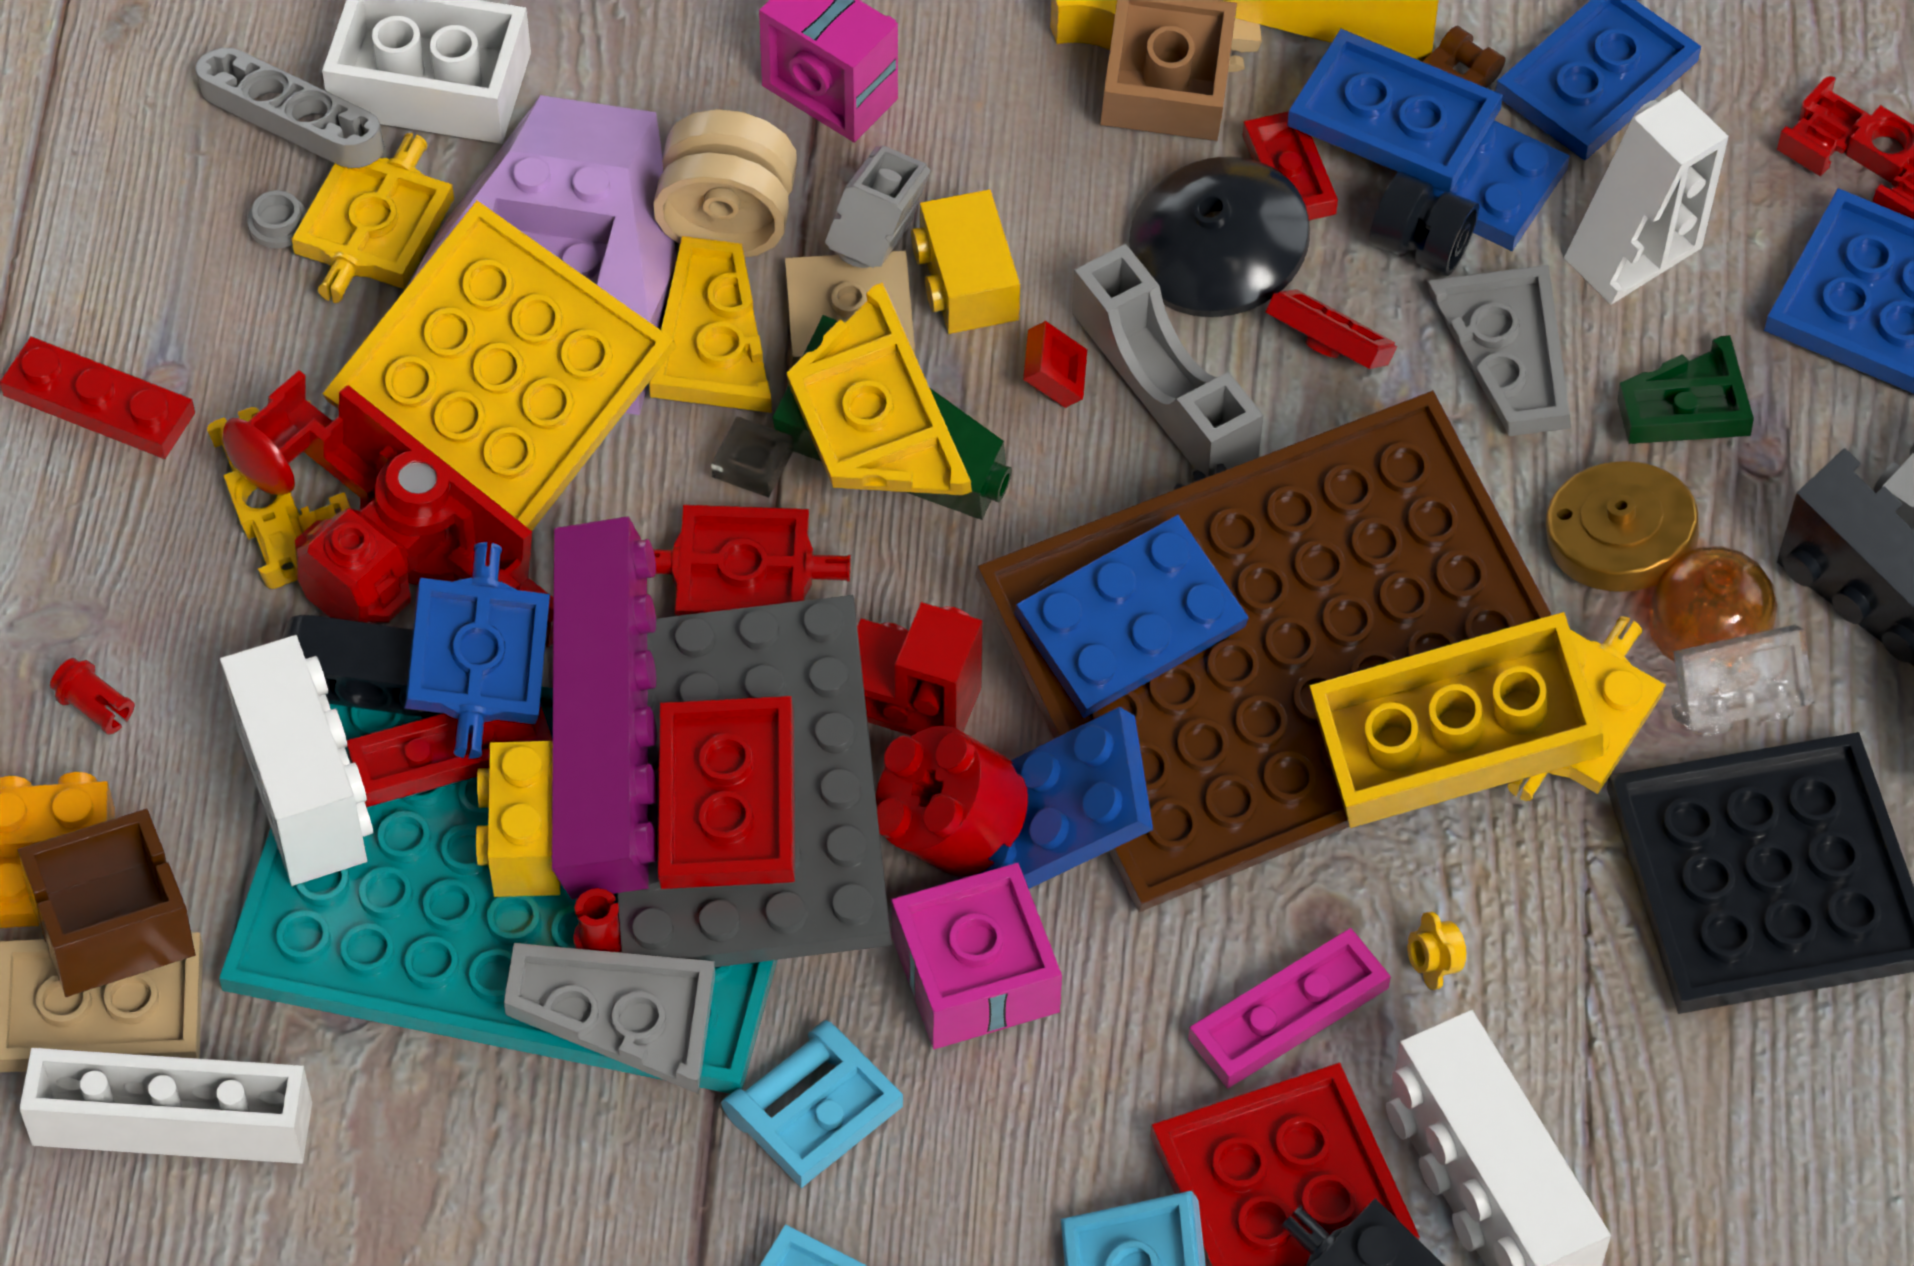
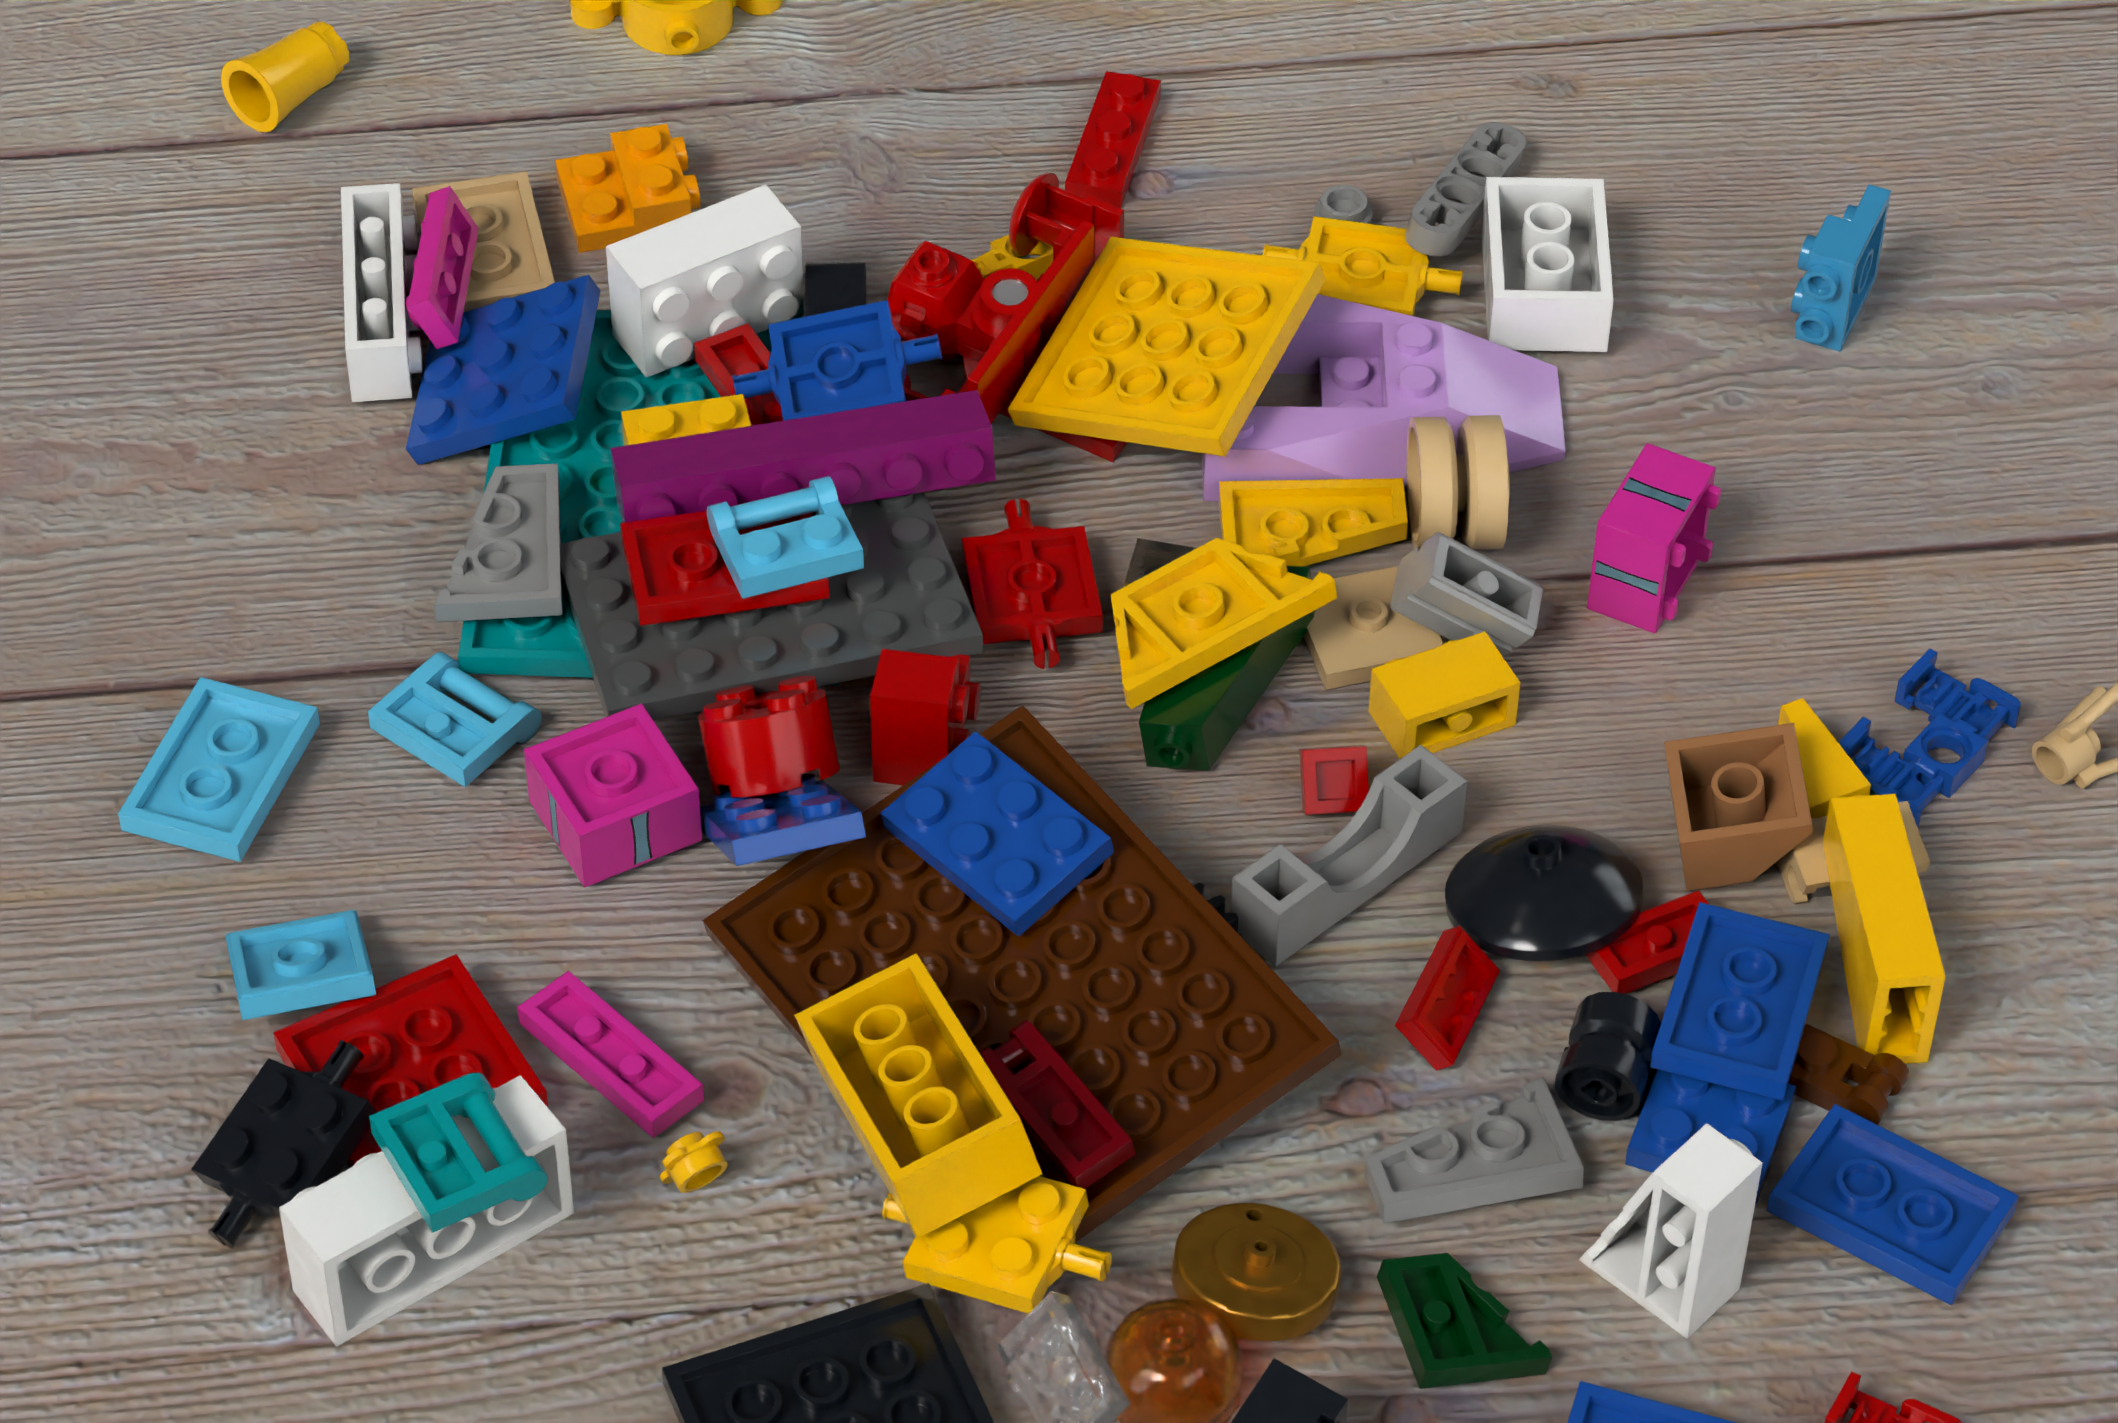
camera: 80 degrees right, 10 degrees down
(80, 686) = (798, 177): red pin -> none
(106, 902) = (564, 204): reddish brown piece -> none
(173, 1026) = (442, 268): none -> dark pink plate
(335, 987) = (508, 373): none -> blue plate
(597, 922) = (583, 511): red pin -> none
(755, 717) = (787, 552): none -> medium azure plate
(1456, 617) = (1058, 1107): none -> dark red plate
(1517, 1112) = (438, 1162): none -> teal plate

